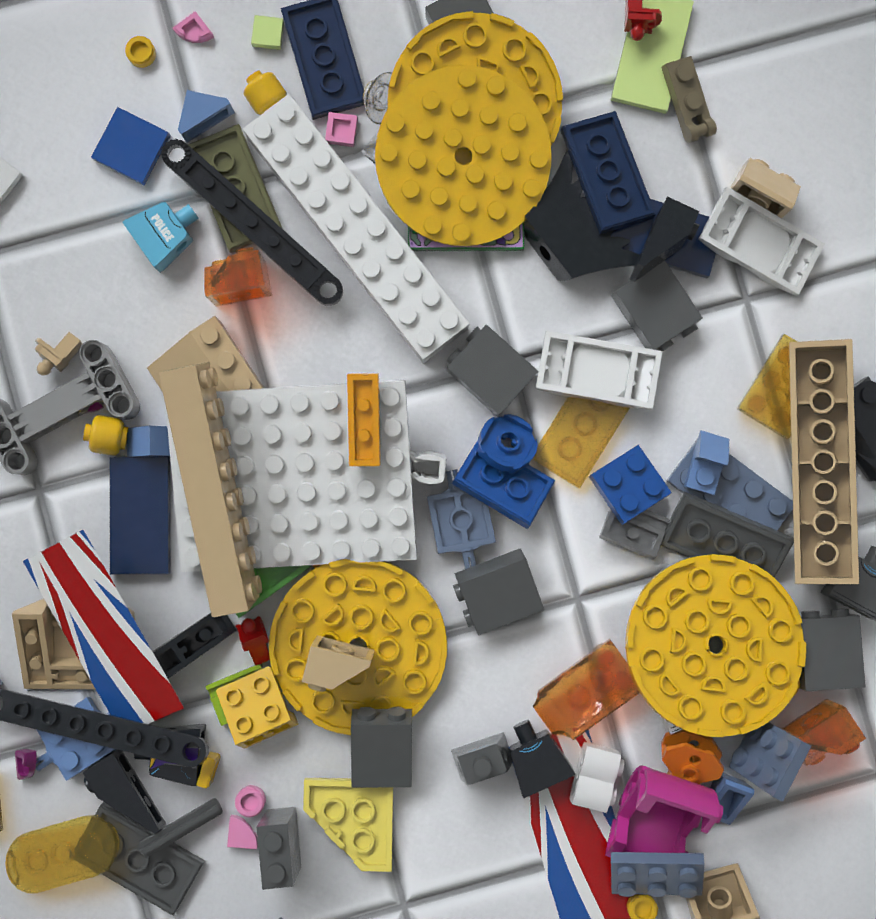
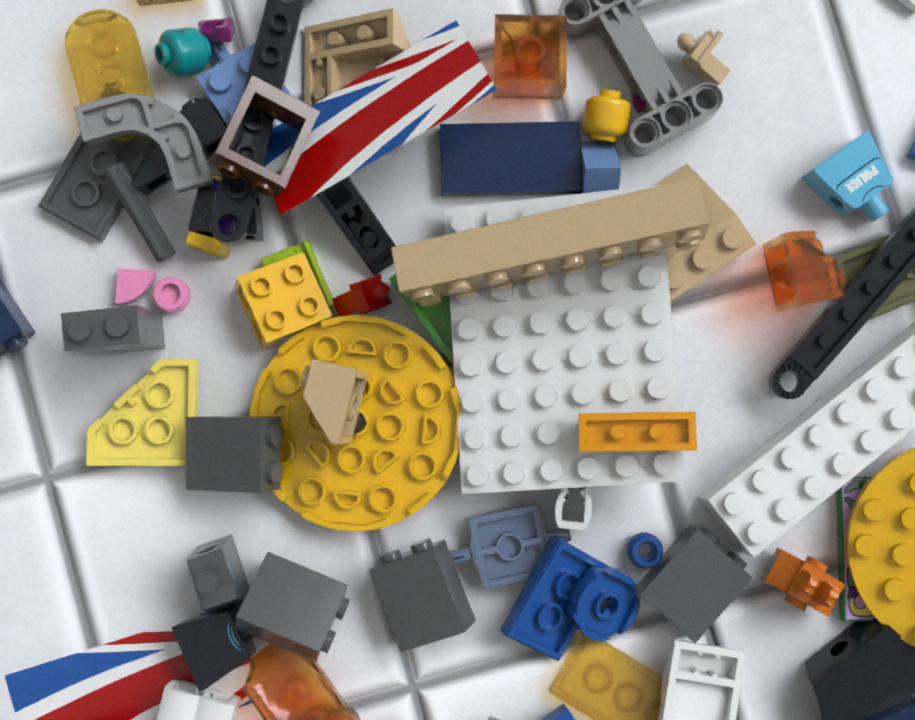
camera: 85 degrees right, 0 degrees up
(44, 791) = (183, 51): none -> teal head
(54, 499) = (530, 56): none -> clear orange slope
(95, 705) = (279, 106): none -> window
(99, 821) = (153, 119): none -> light grey plate
(466, 399) = (652, 557): none -> blue plate
(491, 281) = (804, 582): none -> orange hinge
(507, 698) = (292, 607): none -> dark grey brick

